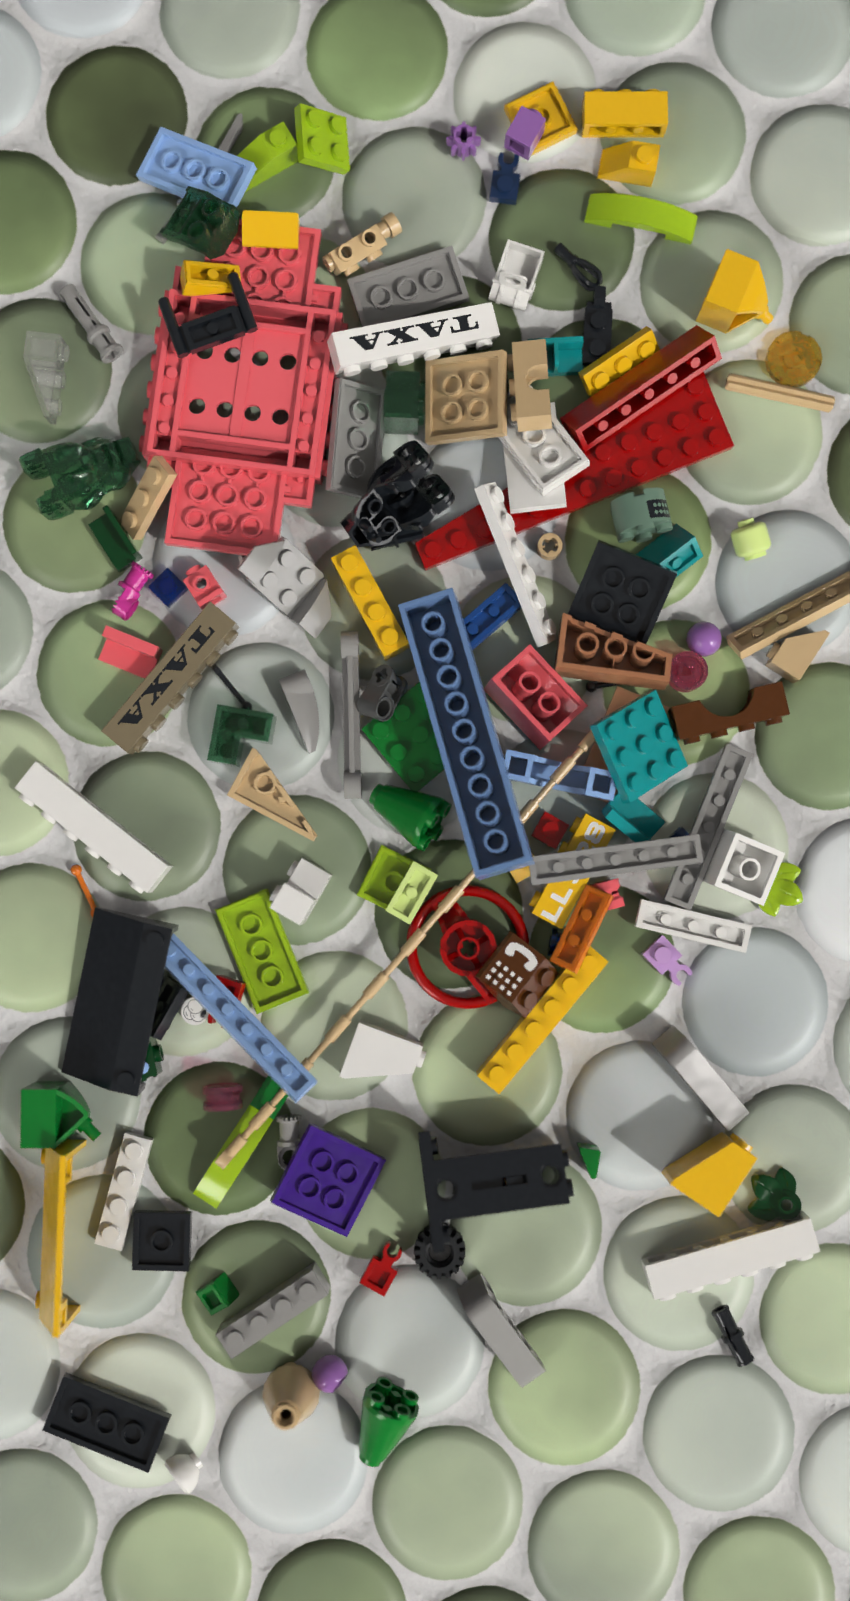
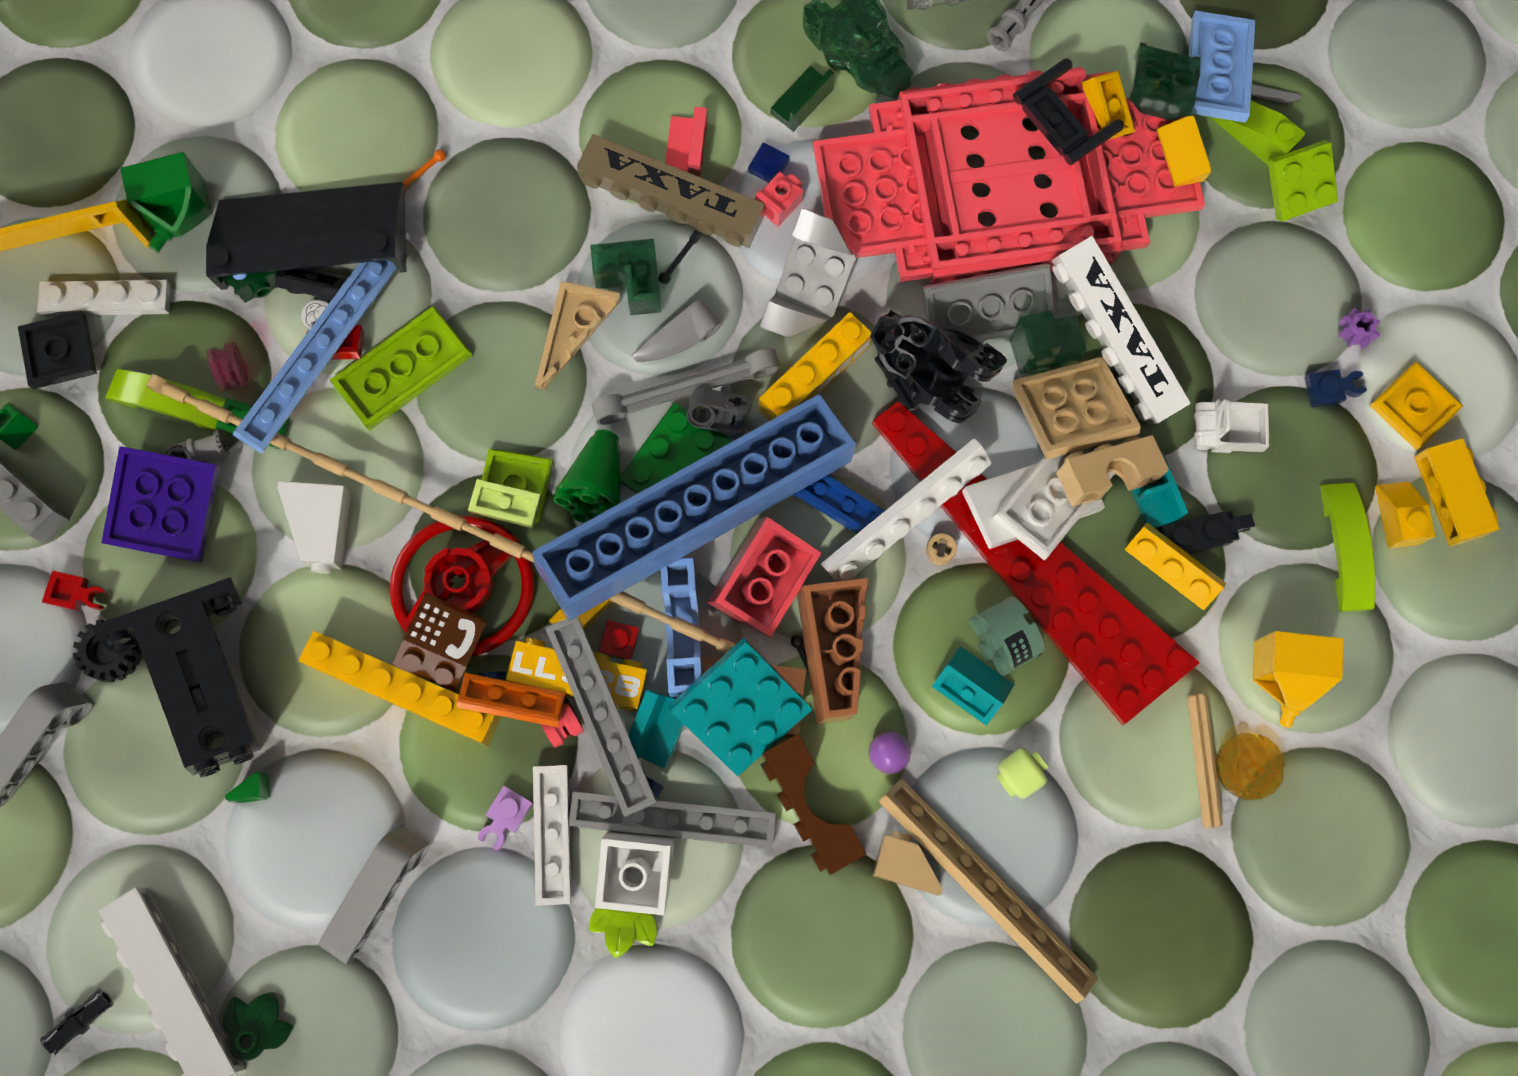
camera: 65 degrees right, 10 degrees down
(93, 827) = (488, 159): white brick -> none
(132, 585) = (739, 126): dark pink connector -> none
(148, 497) = (855, 110): tan plate -> none
(301, 892) = (469, 387): white brick -> none
(358, 249) = (1196, 252): tan brick -> none
(409, 288) = (1177, 317): light grey plate -> none
(525, 132) = (1392, 387): medium lavender brick -> none
(573, 260) = (1271, 484): black piece -> none
(622, 592) = (911, 640): black plate -> none
(641, 387) = (1154, 597): red brick -> none
(688, 671) = (845, 743): clear pink wheel -> none
(712, 1171) = (263, 934): yellow slope -> none

